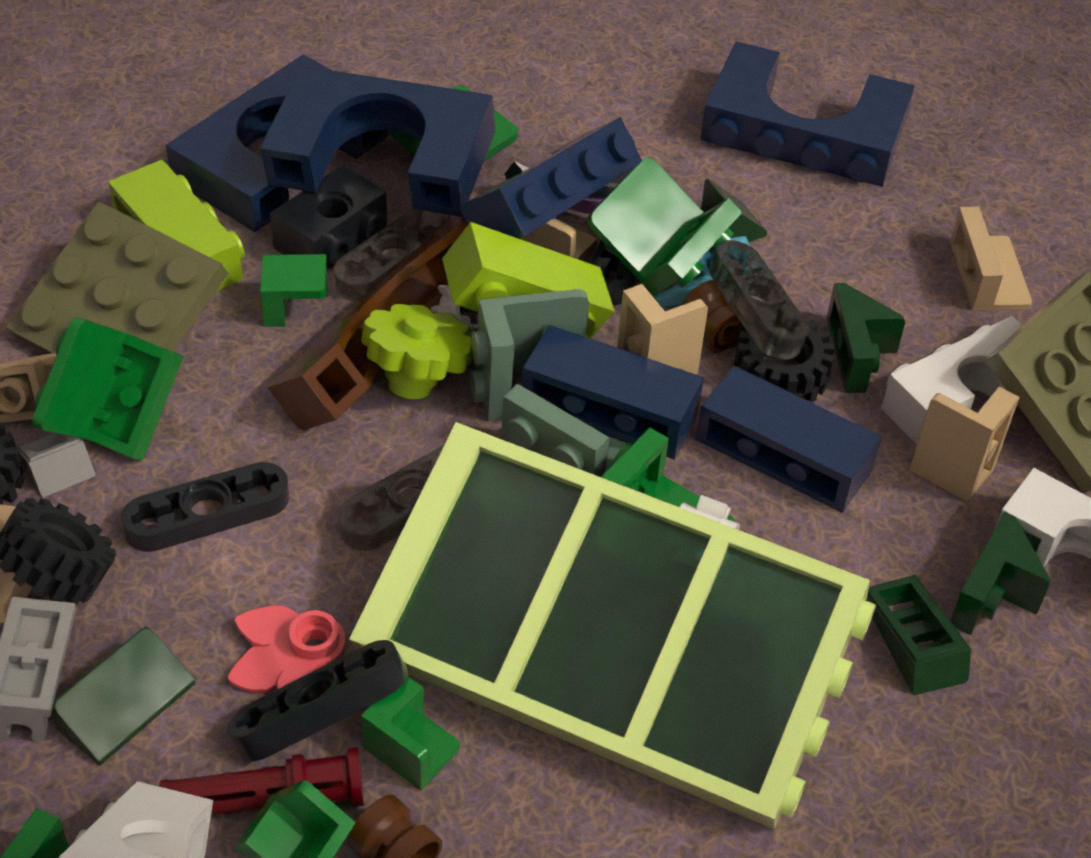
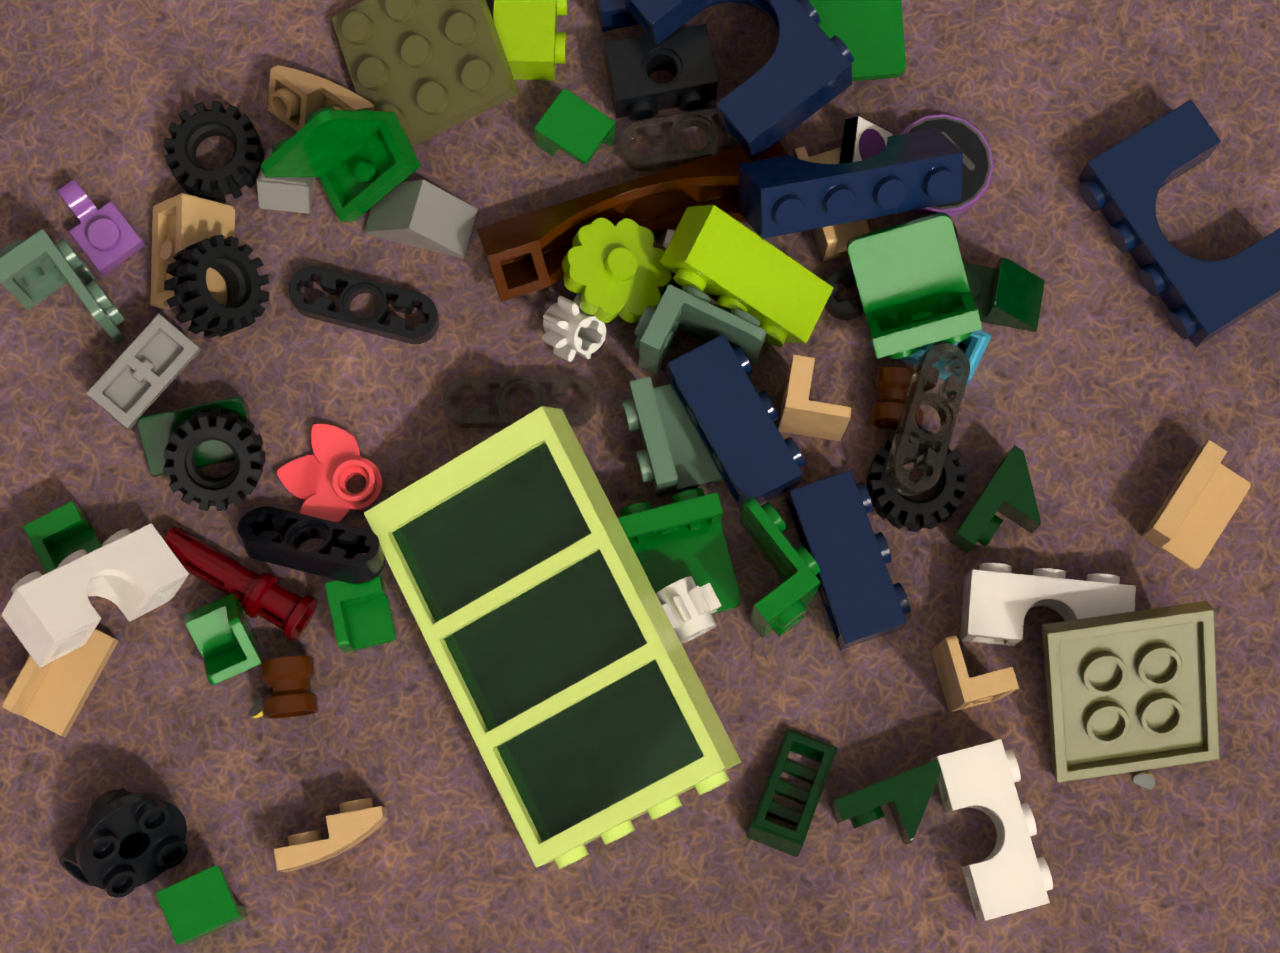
camera: 40 degrees right, 30 degrees up
(169, 653) = (207, 490): none -> black tyre
(206, 414) = (423, 218): none -> light grey slope
(414, 410) = (572, 330): none -> white gear
(743, 453) = (787, 603): none -> green bracket

